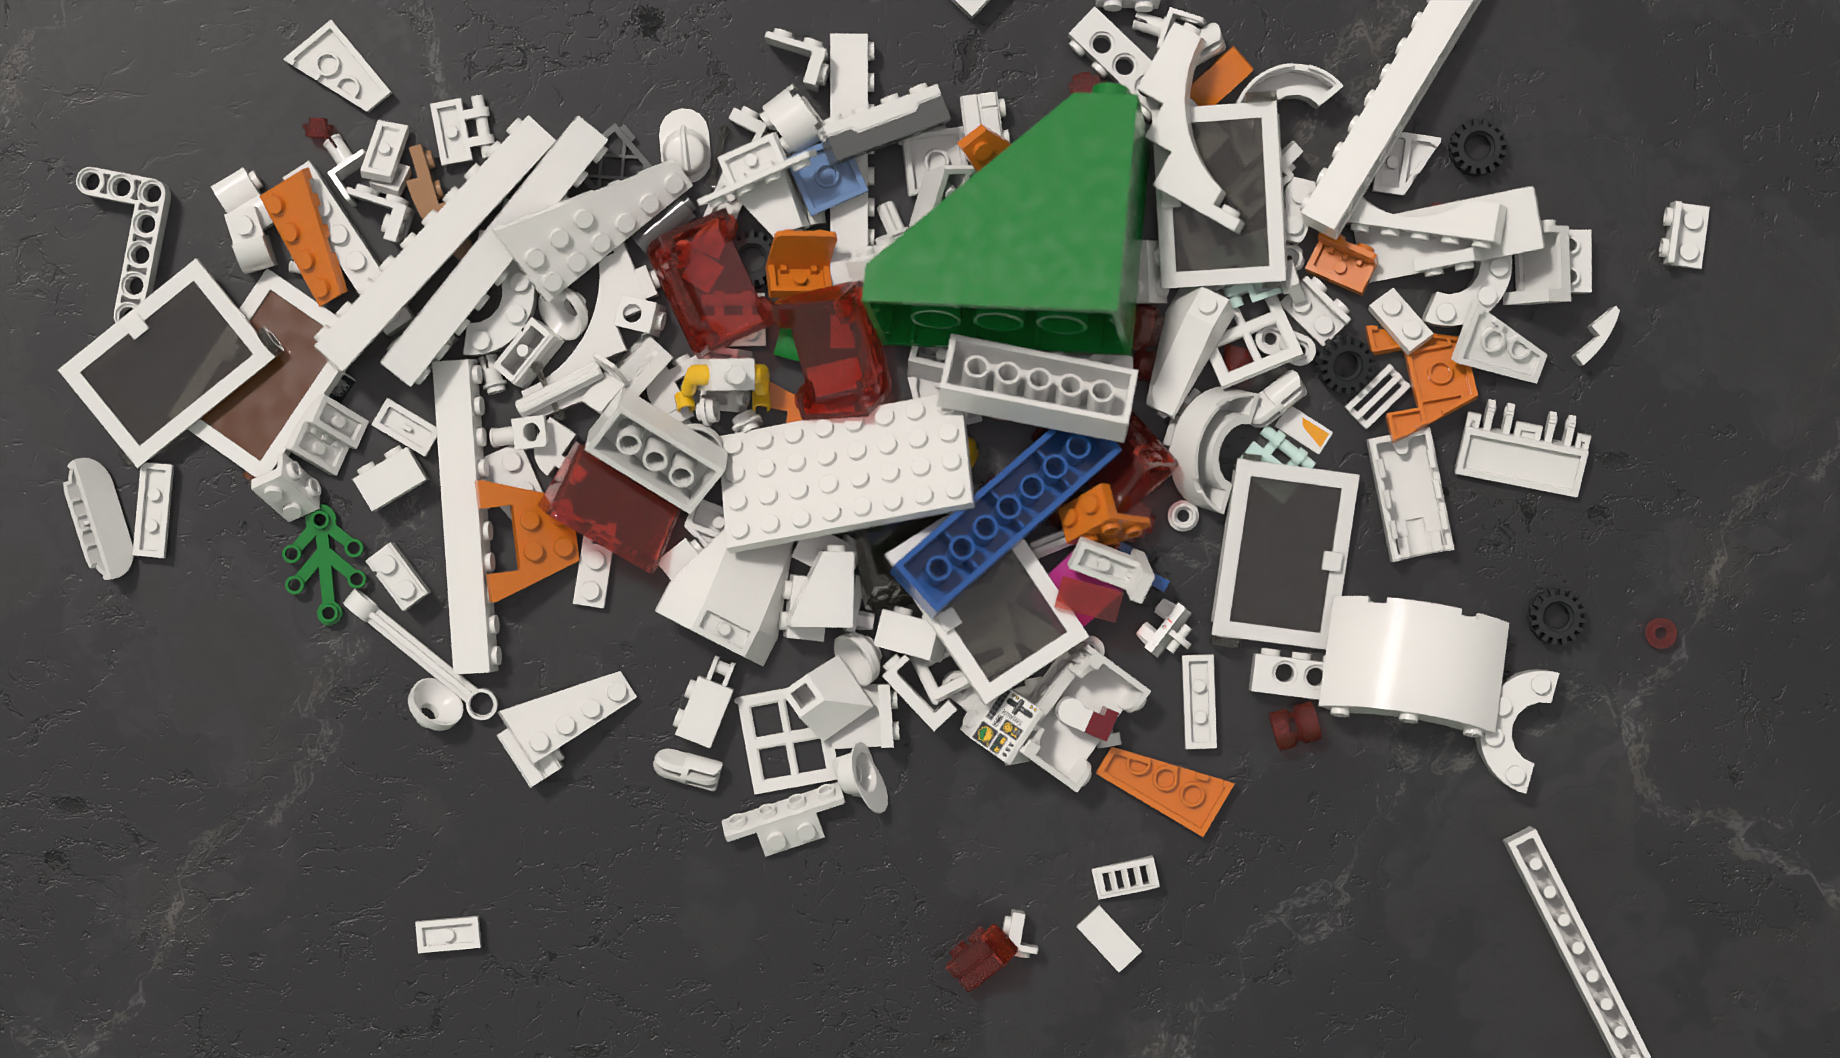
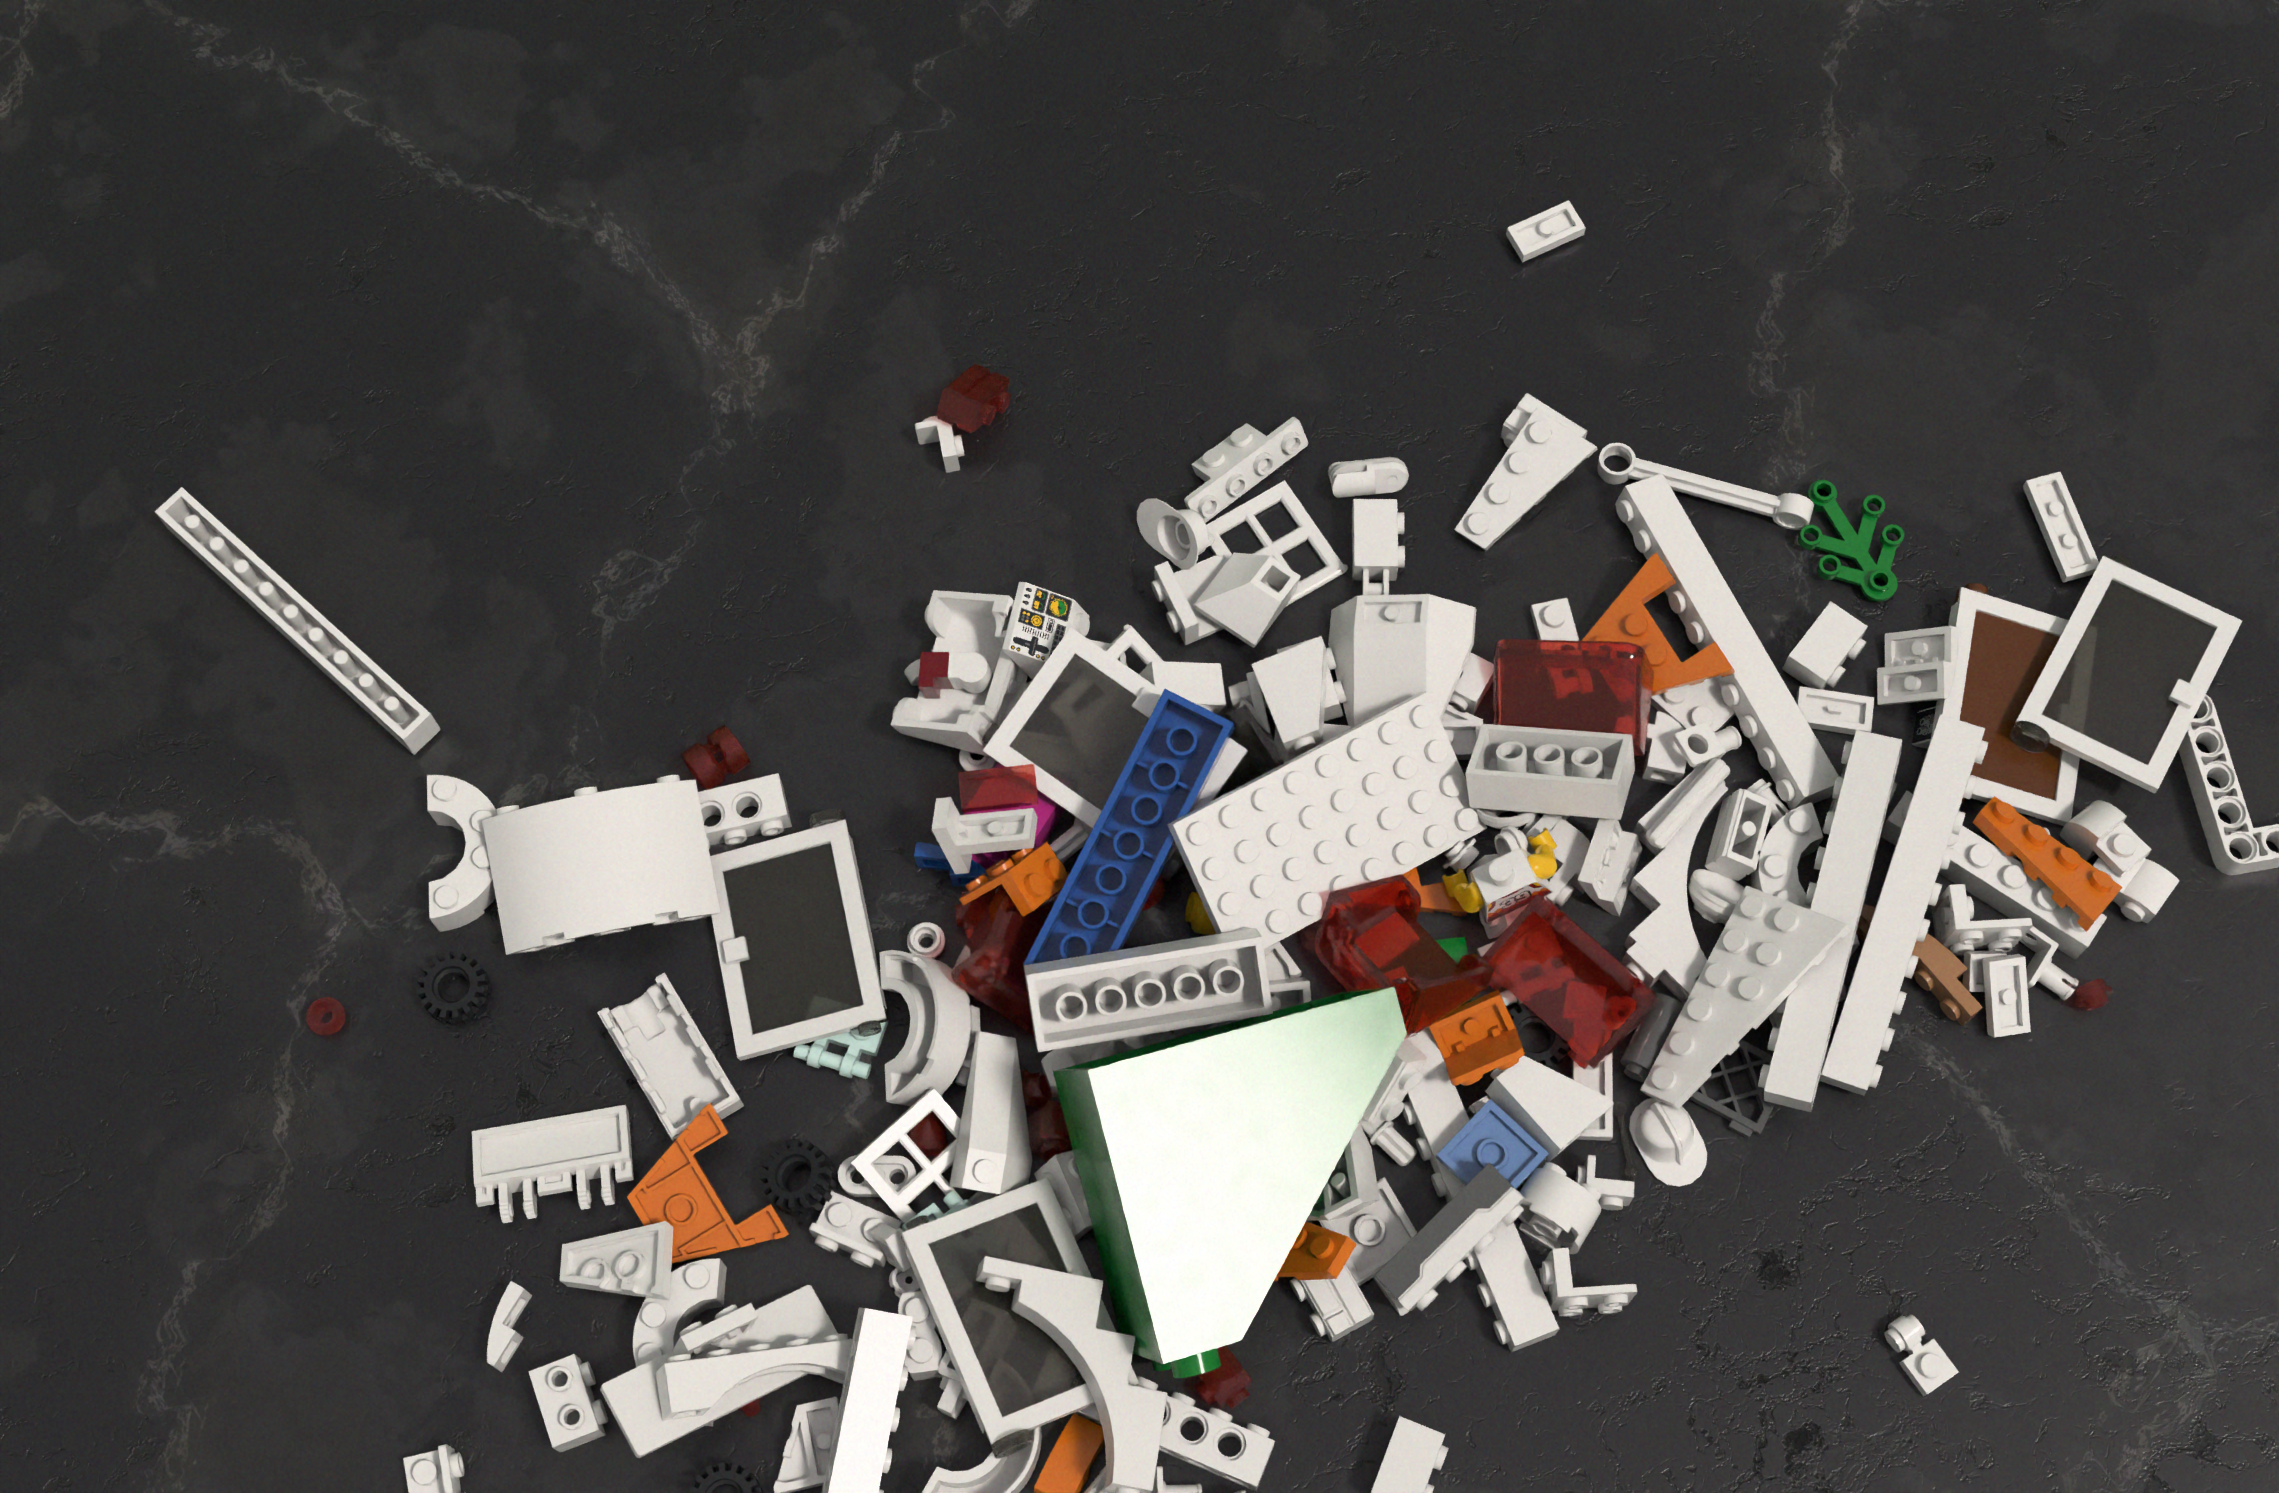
camera: 160 degrees right, 20 degrees down
(98, 518) = (2113, 496): white brick -> none
(288, 489) = (1930, 595): white bracket -> none
(340, 67) = (2106, 1076): white wing -> none
(398, 576) = (1767, 553): white brick -> none
(439, 699) = (1656, 449): white piece -> none
(452, 129) = (1939, 1050): white plate -> none
(537, 367) = (1723, 814): clear smoke hinge -> none
(605, 389) = (1637, 820): white bracket -> none
(651, 320) = (1619, 921): white bracket -> none
(753, 163) = (1583, 1123): white bracket -> none
(859, 656) = (1229, 651): white piece -> none
(932, 717) = (1159, 629): white panel -> none
(1109, 938) = (843, 475): white tile -> none
(1140, 886) = (843, 557): white slope -> none
(1170, 633) = (905, 795): white hips -> none
(1171, 789) = (829, 646): orange wing -> none
(1199, 701) = (833, 748): white plate -> none
(1278, 398) = (863, 1110): white arm -> none
(1304, 429) = (821, 1092): white sticker -> none
(1343, 263) = (840, 1292): orange bracket -> none
(1396, 378) = (733, 1154): white tile -> none
(1400, 321) = (749, 1253): white plate -> none
(1544, 273) = (587, 1360): white panel -> none

